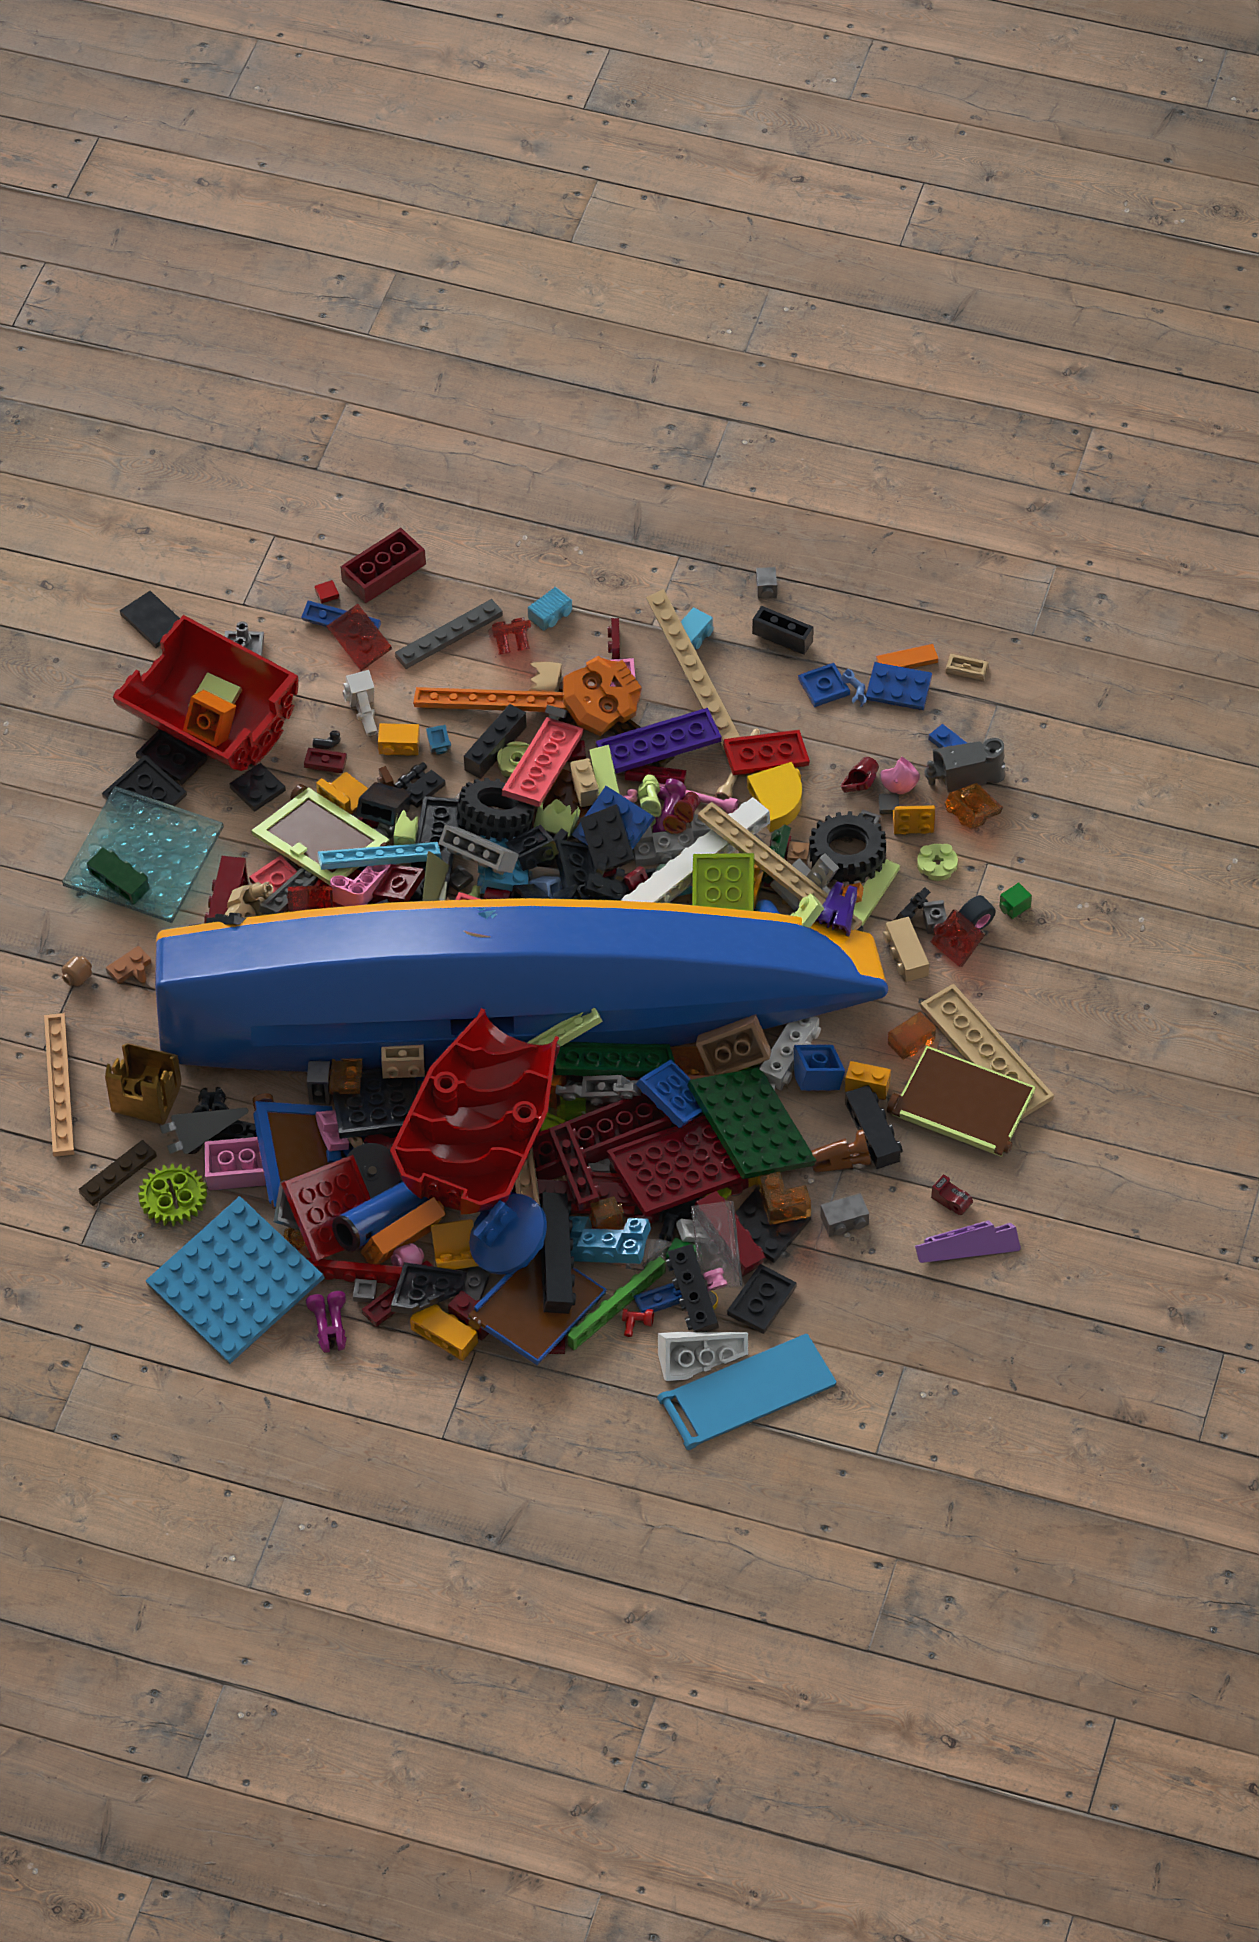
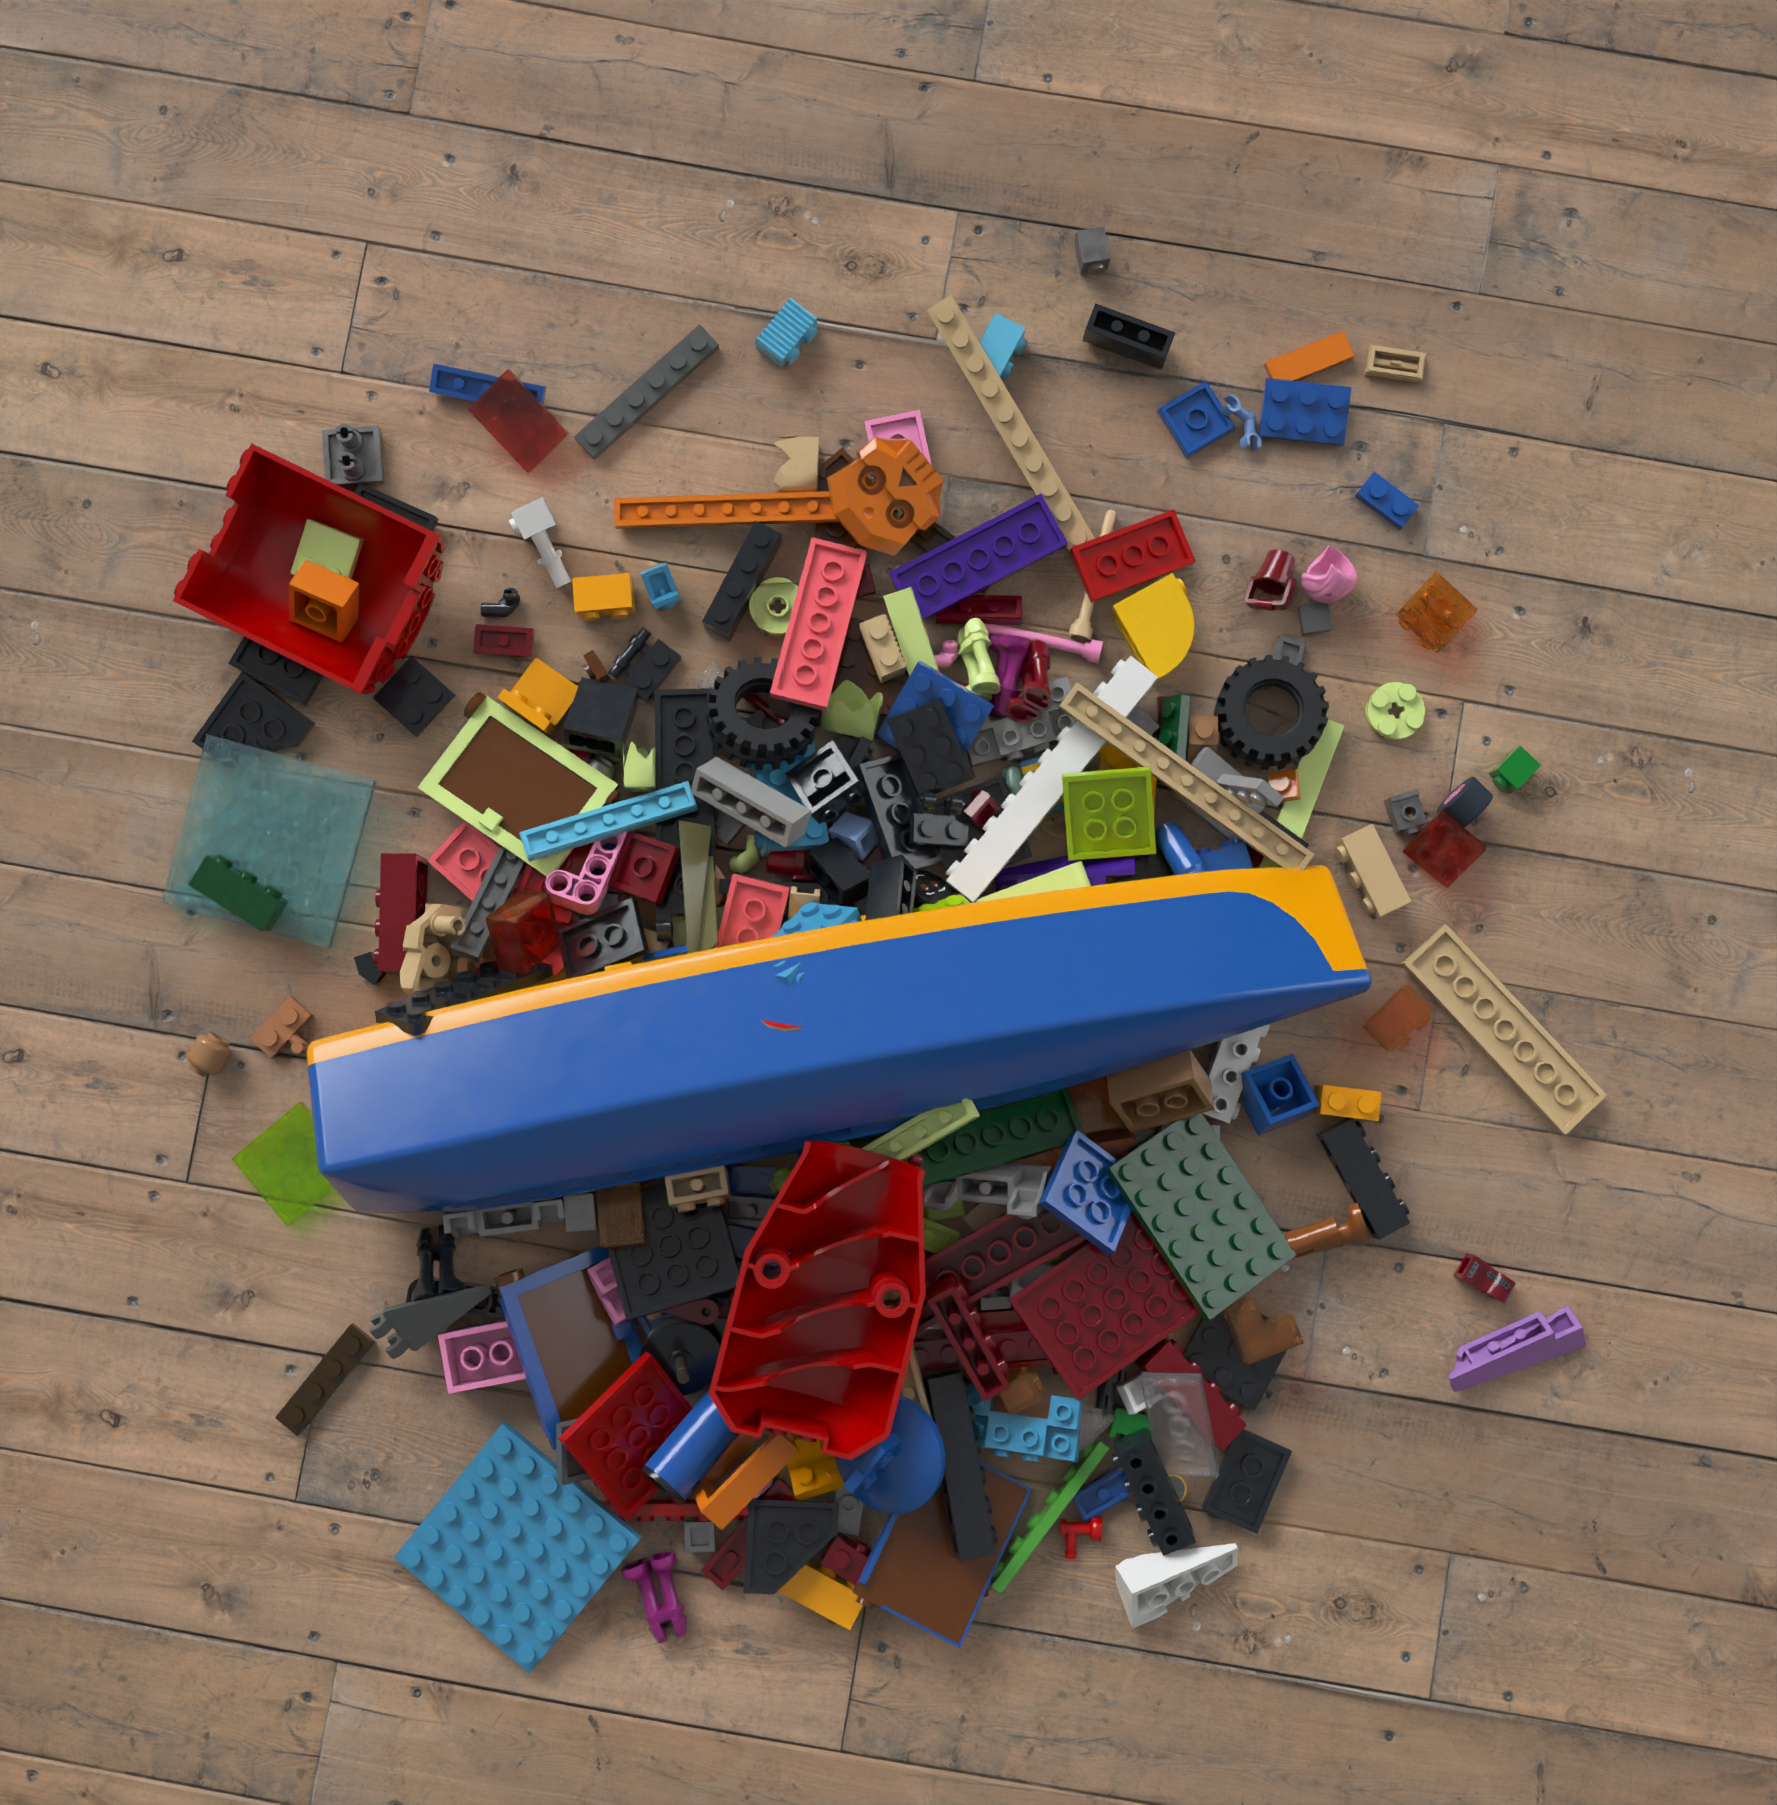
camera: 10 degrees left, 30 degrees up
(59, 1085) = (217, 1246): light nougat plate -> none
(107, 1038) = (285, 1165): none -> clear neon green plate
(134, 1077) = (318, 1270): pearl gold piece -> none
(150, 617) = (214, 416): black tile -> none
(191, 1188) = (383, 1424): lime gear -> none
(279, 1082) = (504, 1218): none -> light grey bracket
(326, 591) = (458, 337): red tile -> none
(383, 565) = (533, 286): dark red brick -> none
(501, 630) = (742, 379): clear red plate -> none
(555, 712) = (825, 531): flat silver plate -> none
(614, 645) = (885, 366): dark red plate -> none
(715, 1279) = (1183, 1476): bright pink wheel -> none
(749, 1390) = (1247, 1624): dark azure flag -> none
(809, 910) = (1242, 857): yellowish green plate -> none
(838, 908) = (1281, 847): dark purple piece -> none
(844, 1215) = (1343, 1330): flat silver brick -> none
(914, 819) = (1354, 645): light orange bracket -> none
(915, 901) = (1374, 793): black plate -> none
(963, 1101) = (1484, 1122): reddish brown door -> none
(967, 764) = (1424, 549): dark grey piece -> none

